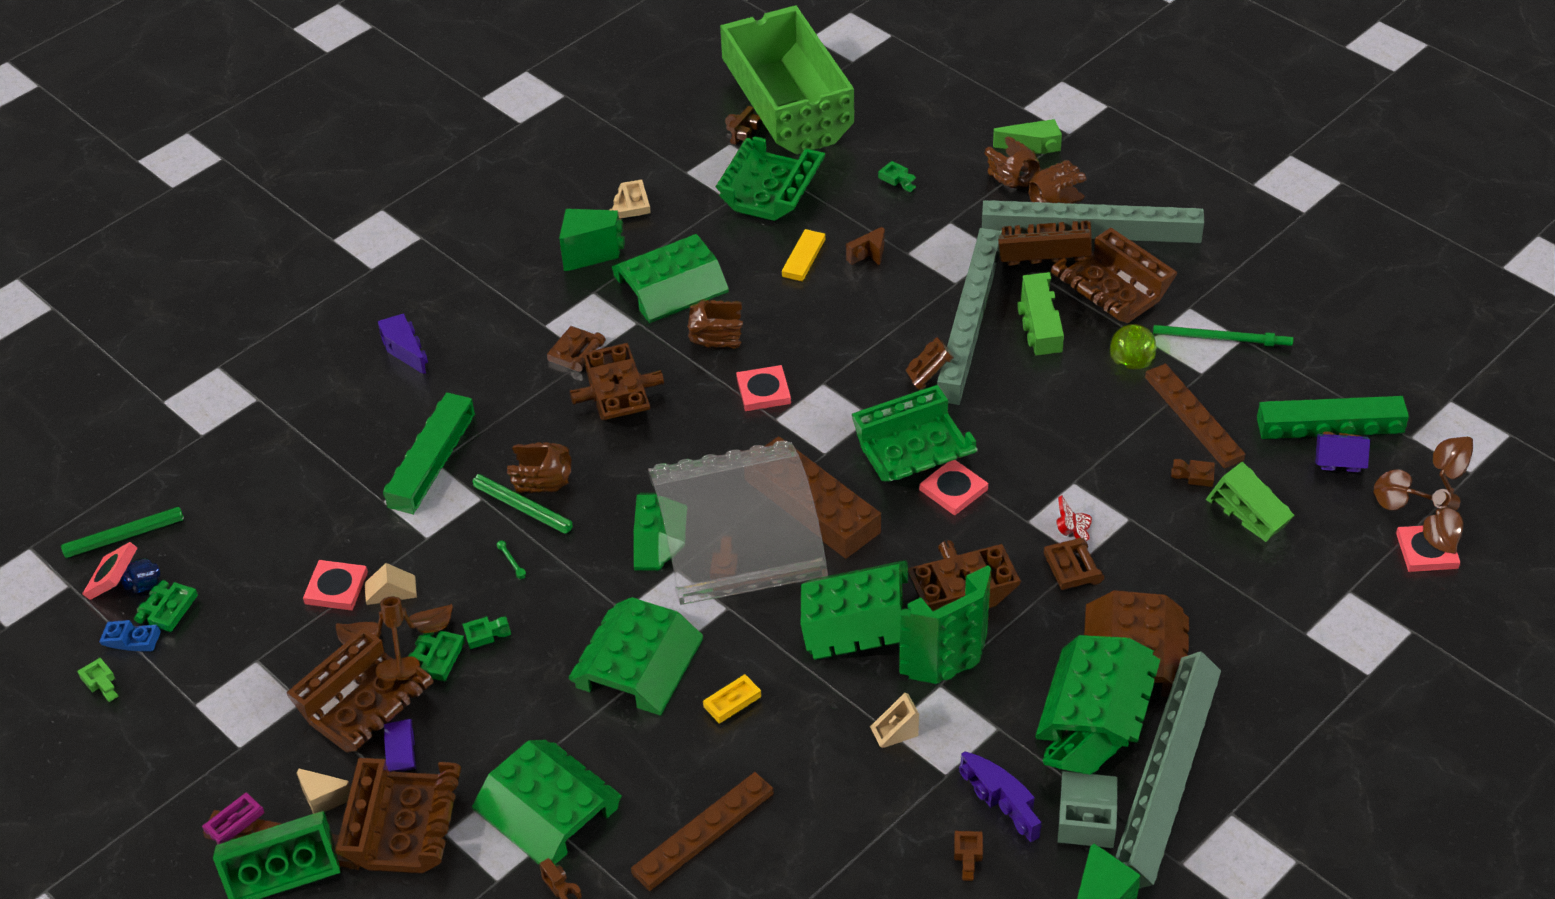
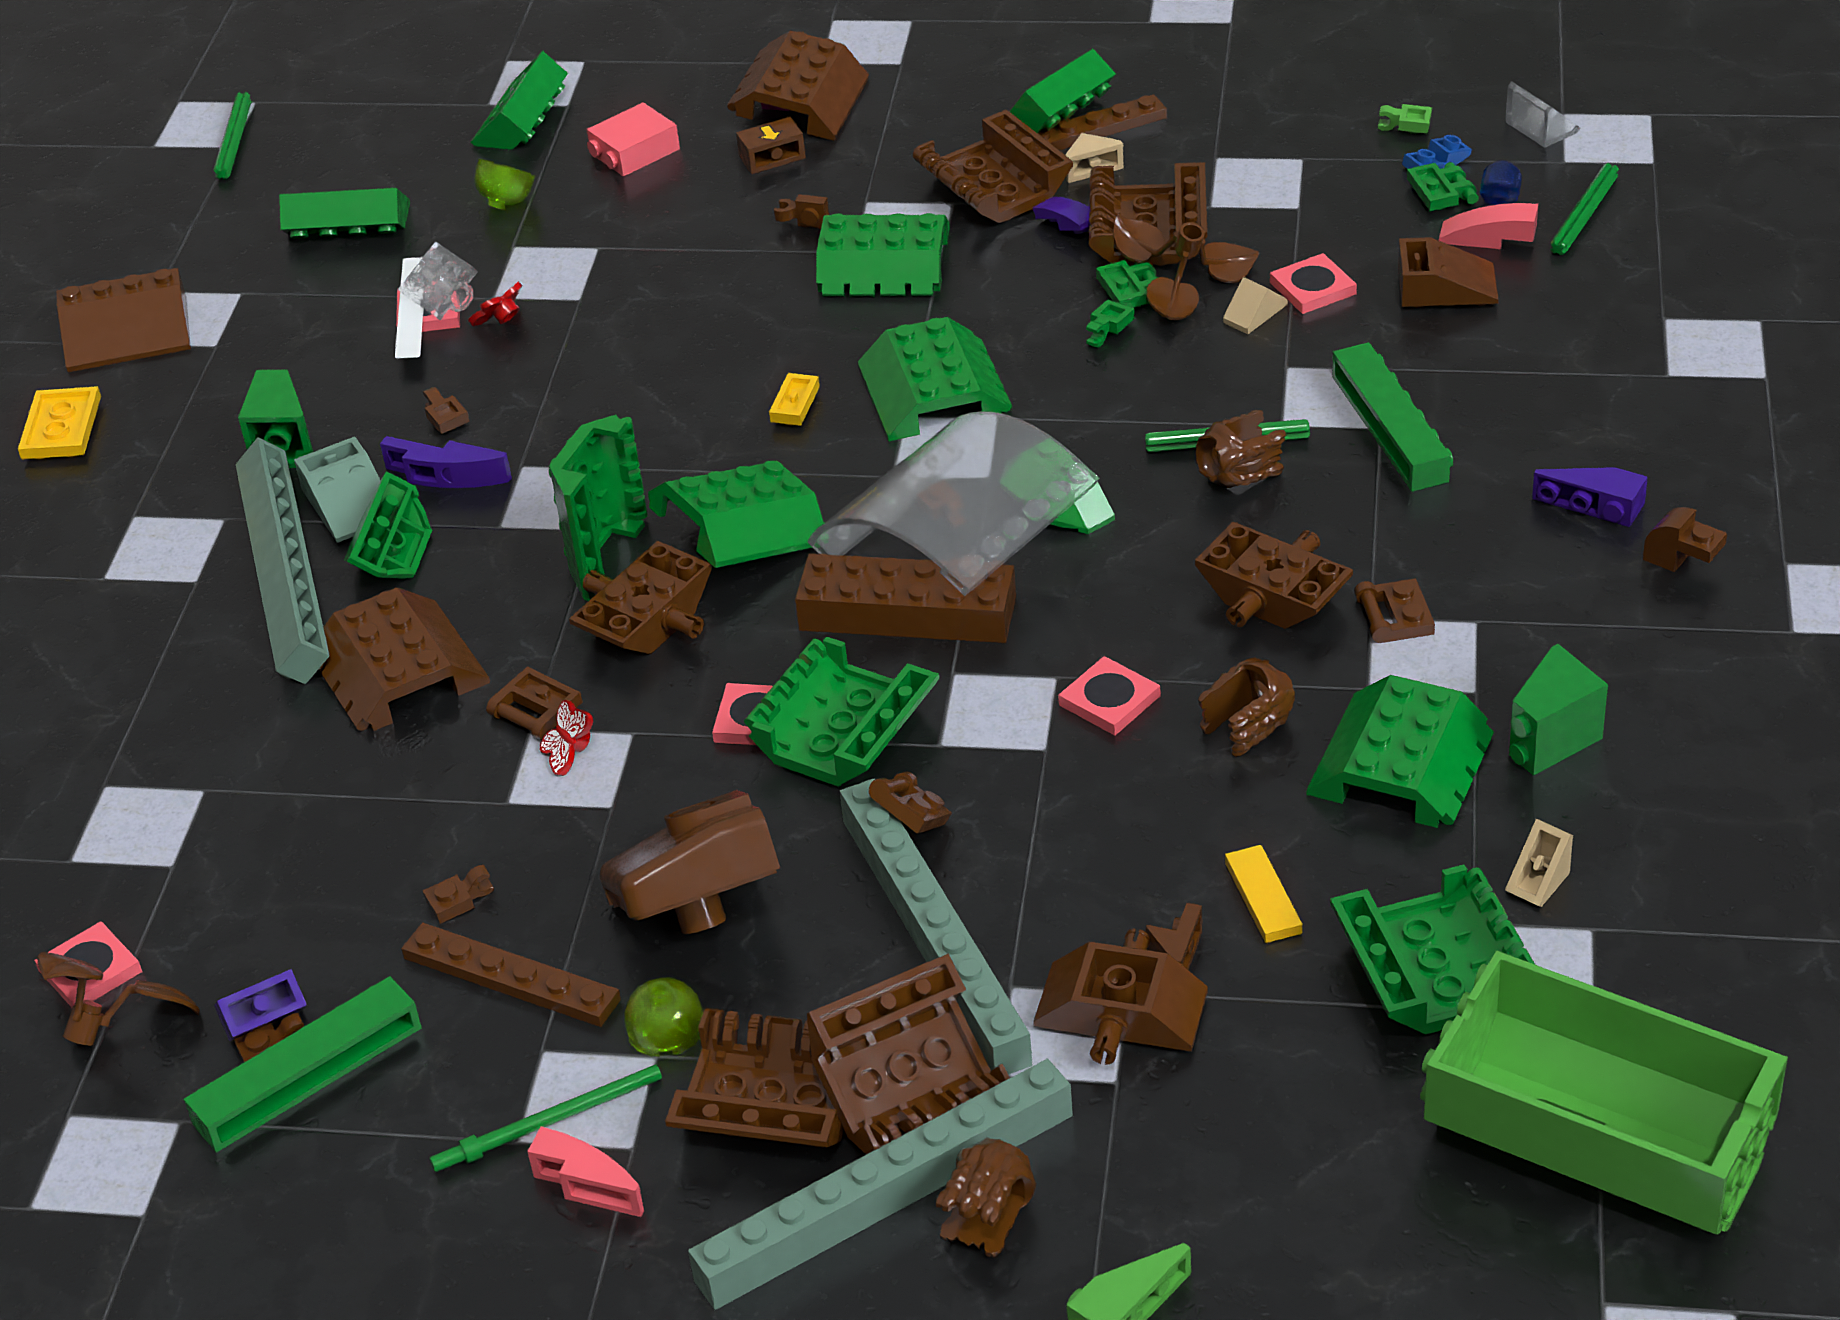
camera: 145 degrees right, 5 degrees down
(34, 618) = (1536, 117): none -> clear slope
(110, 571) = (1527, 164): coral tile -> none
(193, 547) = (1490, 225): none -> coral slope
(236, 821) = (1132, 111): magenta tile -> none
(275, 526) = (1443, 275): none -> reddish brown slope
(410, 288) = (1681, 536): none -> reddish brown brick
(520, 572) = (1146, 388): green hinge -> none
(631, 199) = (1596, 822): tan wing -> none
(678, 194) = (1541, 864): none -> tan slope
(702, 831) = (716, 311): reddish brown plate -> none
(895, 173) = (1272, 1093): green plate -> none
(922, 238) = (1122, 997): none -> reddish brown slope
(1007, 169) = (1096, 1198): reddish brown piece -> none
(1039, 315) = (820, 963): bright green wedge -> none
(1075, 374) = (692, 861): none -> reddish brown piece
(1100, 689) = (393, 545): green slope -> none
(1224, 296) = (584, 1172): none -> coral slope
(1251, 501) = (354, 871): bright green wedge -> none

